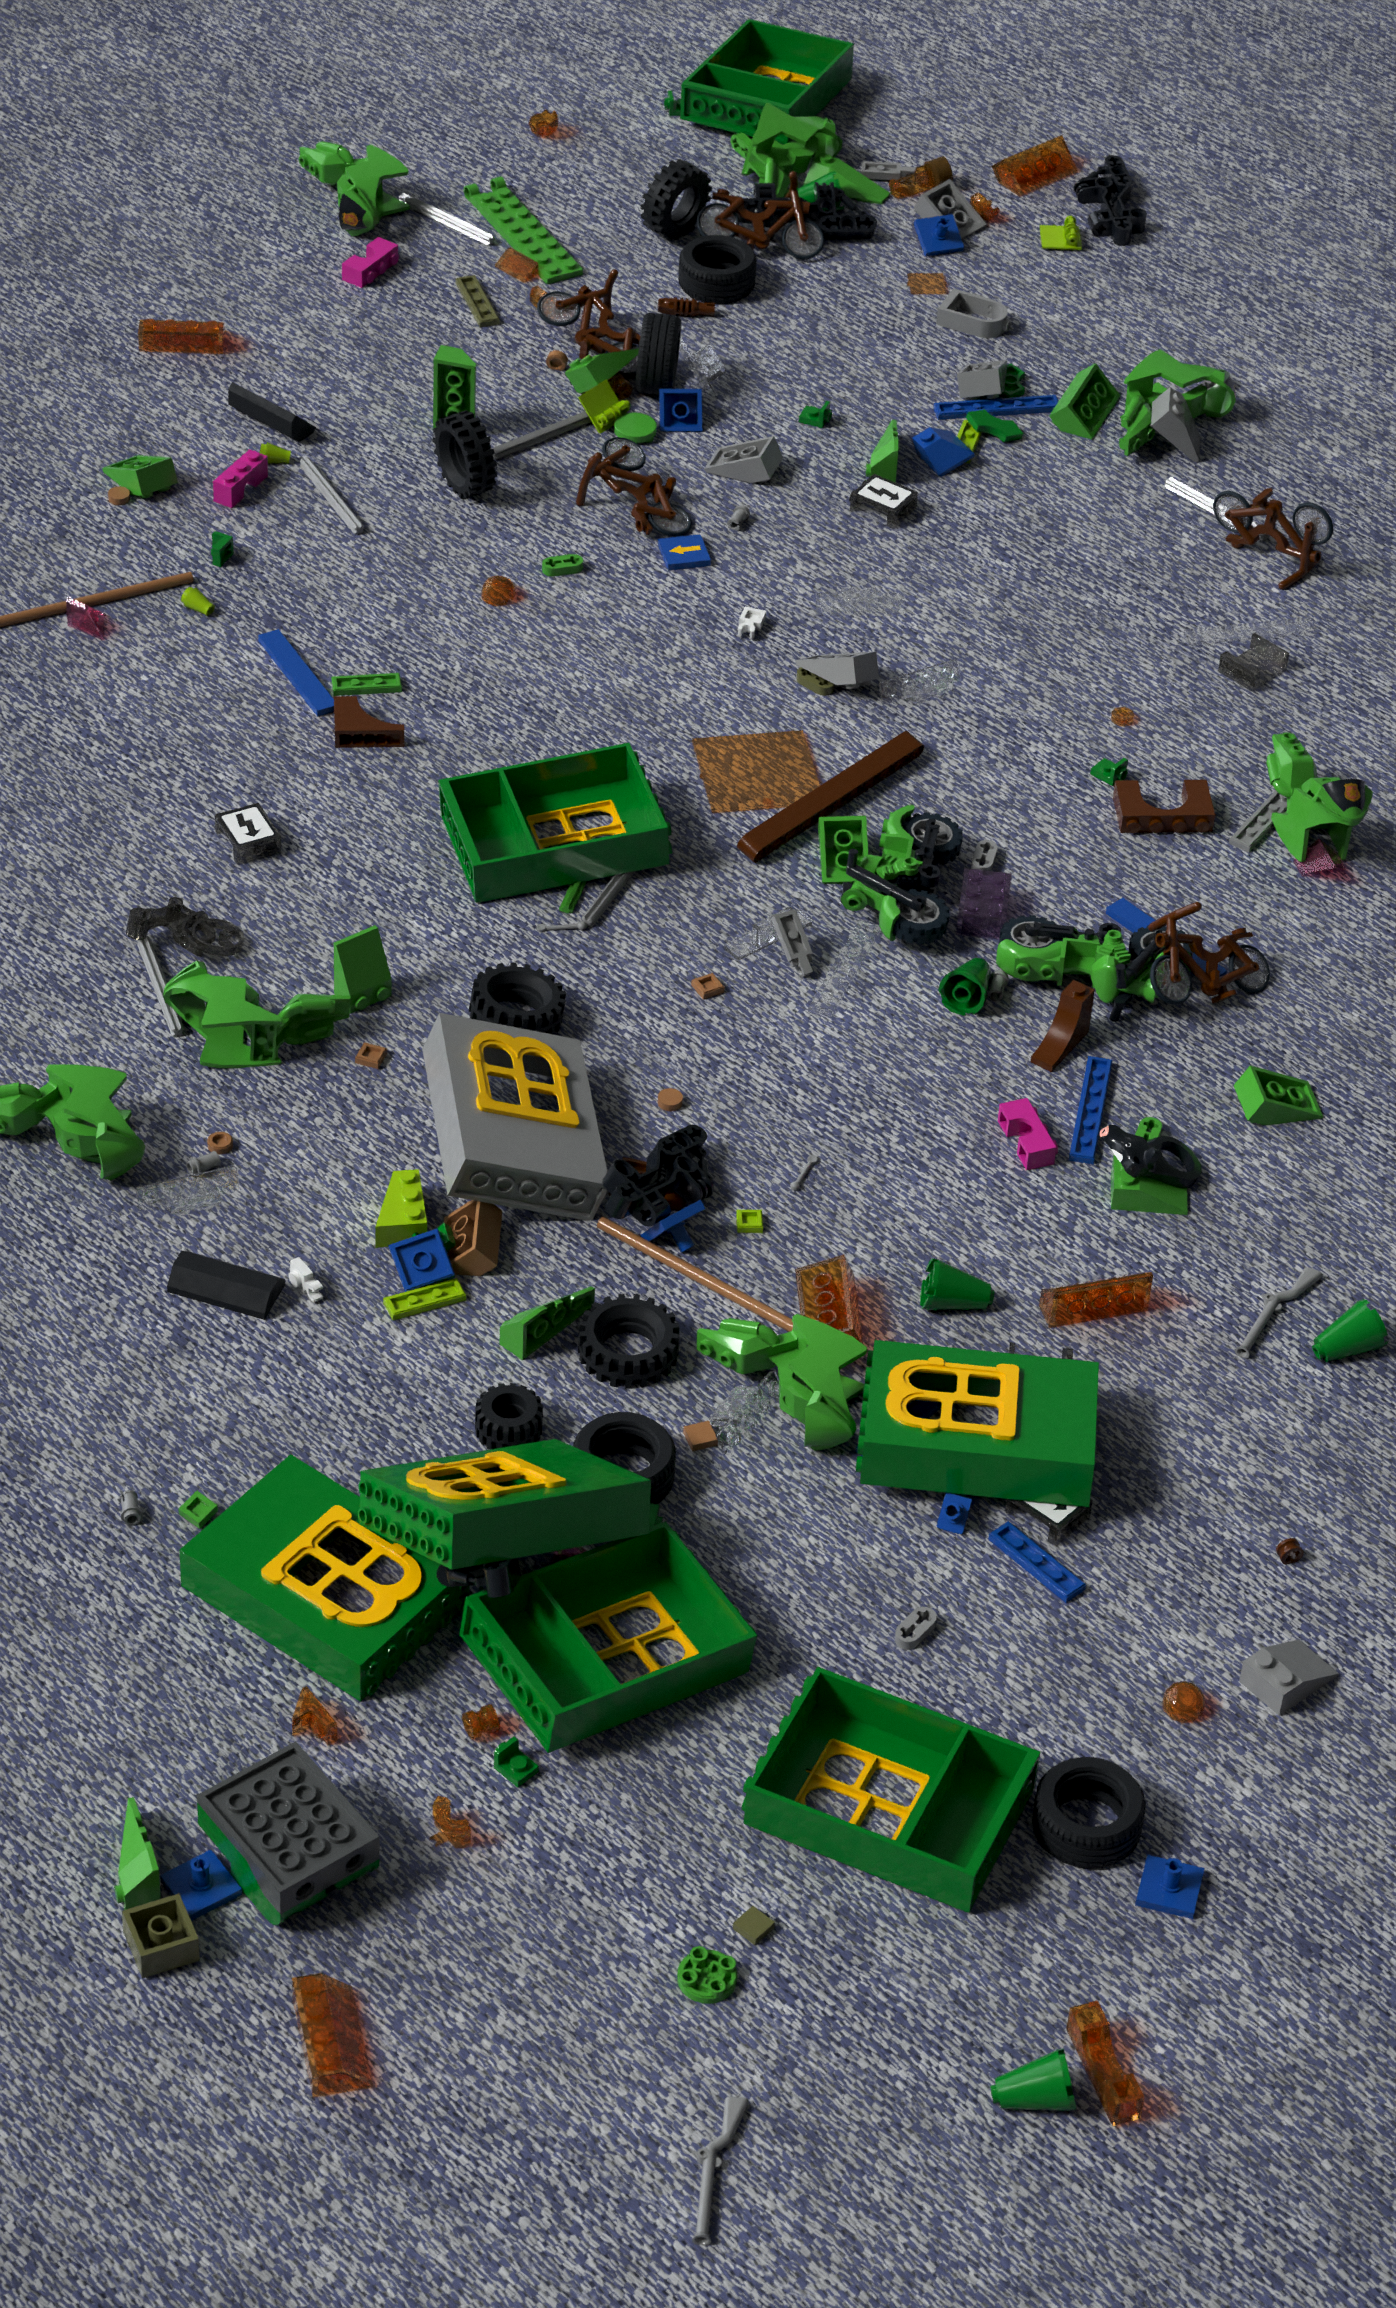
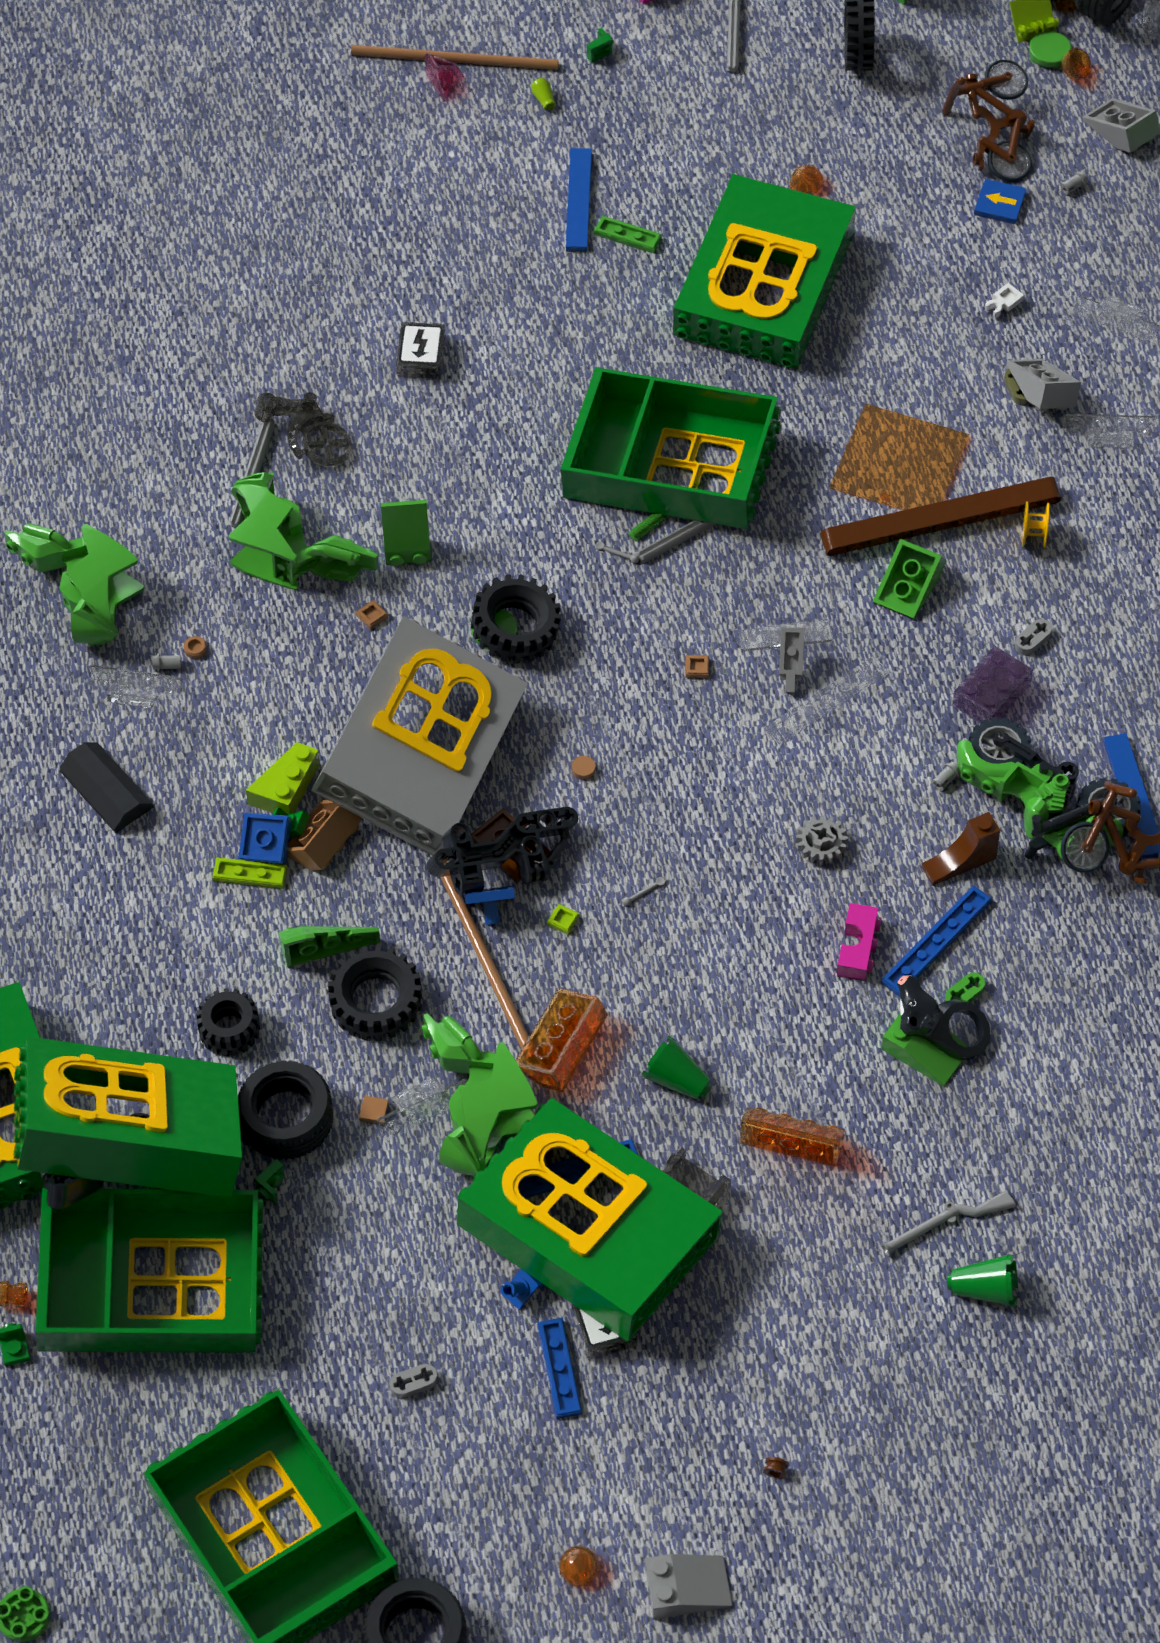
camera: 35 degrees right, 15 degrees up
(302, 1276) = (164, 808): white plate -> none
(360, 730) = (583, 280): reddish brown arch -> none
(532, 627) = (774, 227): none -> green panel
(541, 435) = (959, 26): light grey axle -> none
(562, 565) = (881, 174): bright green beam -> none
(668, 430) = (1076, 64): none -> clear orange hair
(680, 410) = (1104, 45): blue slope -> none
(753, 1925) = (90, 1588): olive tile -> none
(905, 876) = (920, 636): piece -> none
(922, 770) = (1034, 524): none -> yellow piece
(931, 1071) = (824, 843): none -> light grey gear
(966, 987) = (914, 766): green cone -> none
(1275, 1097) = (1108, 1006): bright green slope -> none

